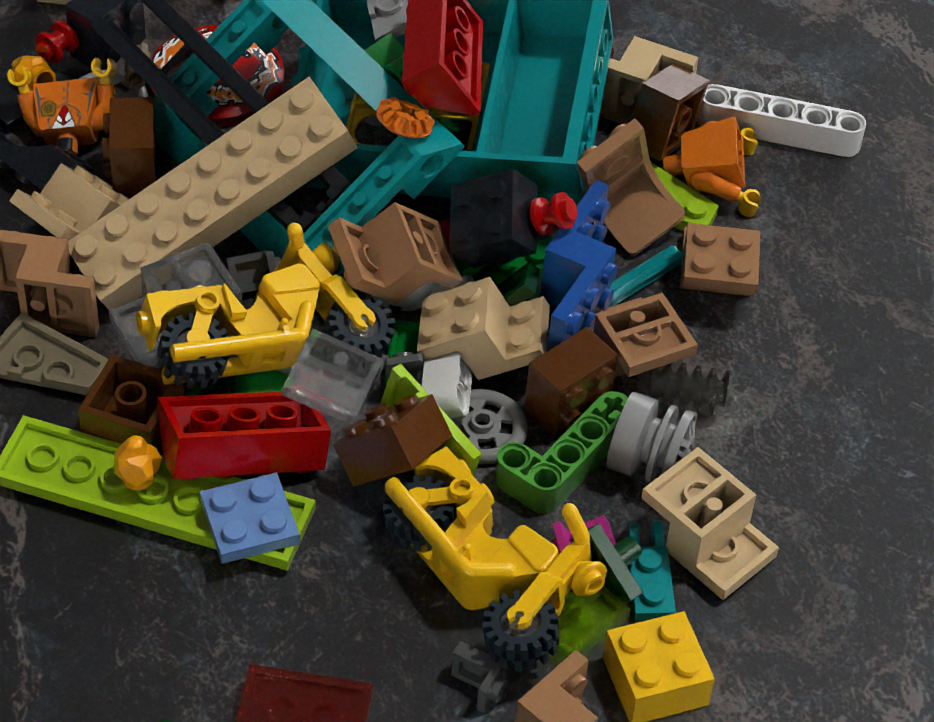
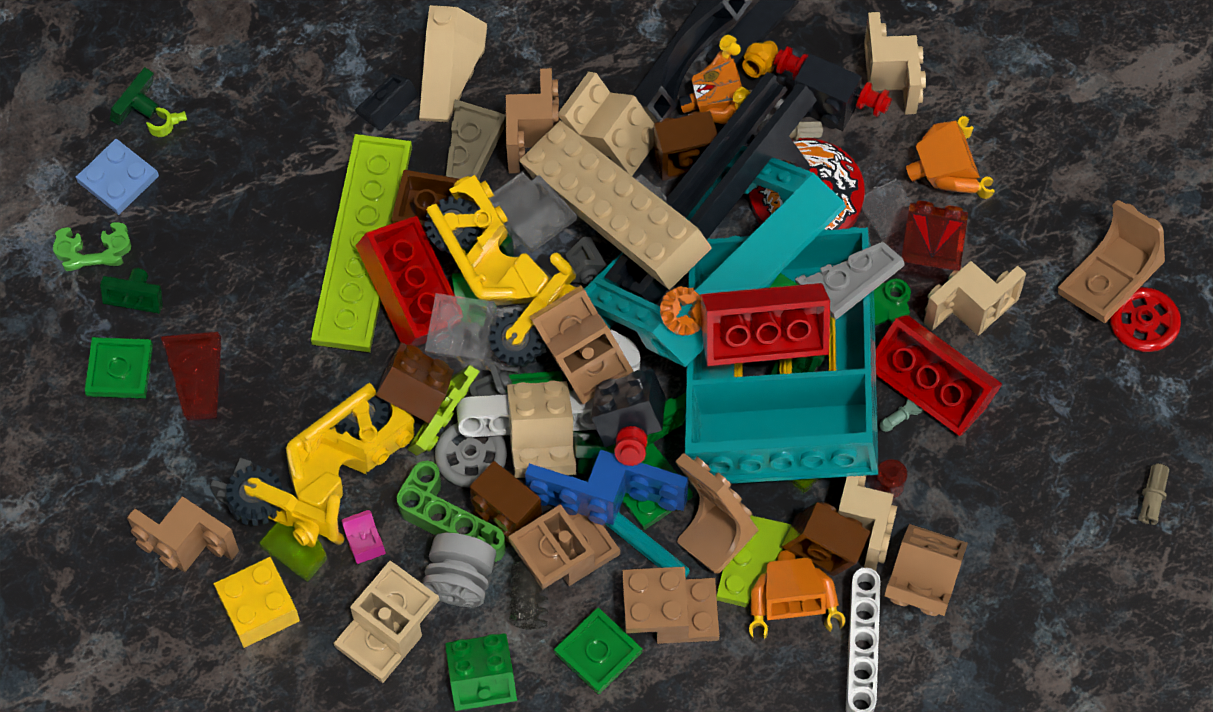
camera: 85 degrees right, 15 degrees up
(136, 463) = (365, 218): light orange rock -> none
(249, 518) = (340, 305): medium blue plate -> none
(616, 559) = (337, 554): dark green tile -> none
(652, 575) = (339, 592): teal hinge -> none
(718, 45) = (925, 570): none -> medium nougat bracket
(761, 340) = (598, 651): none -> green plate
(772, 447) = (480, 671): none -> green bracket

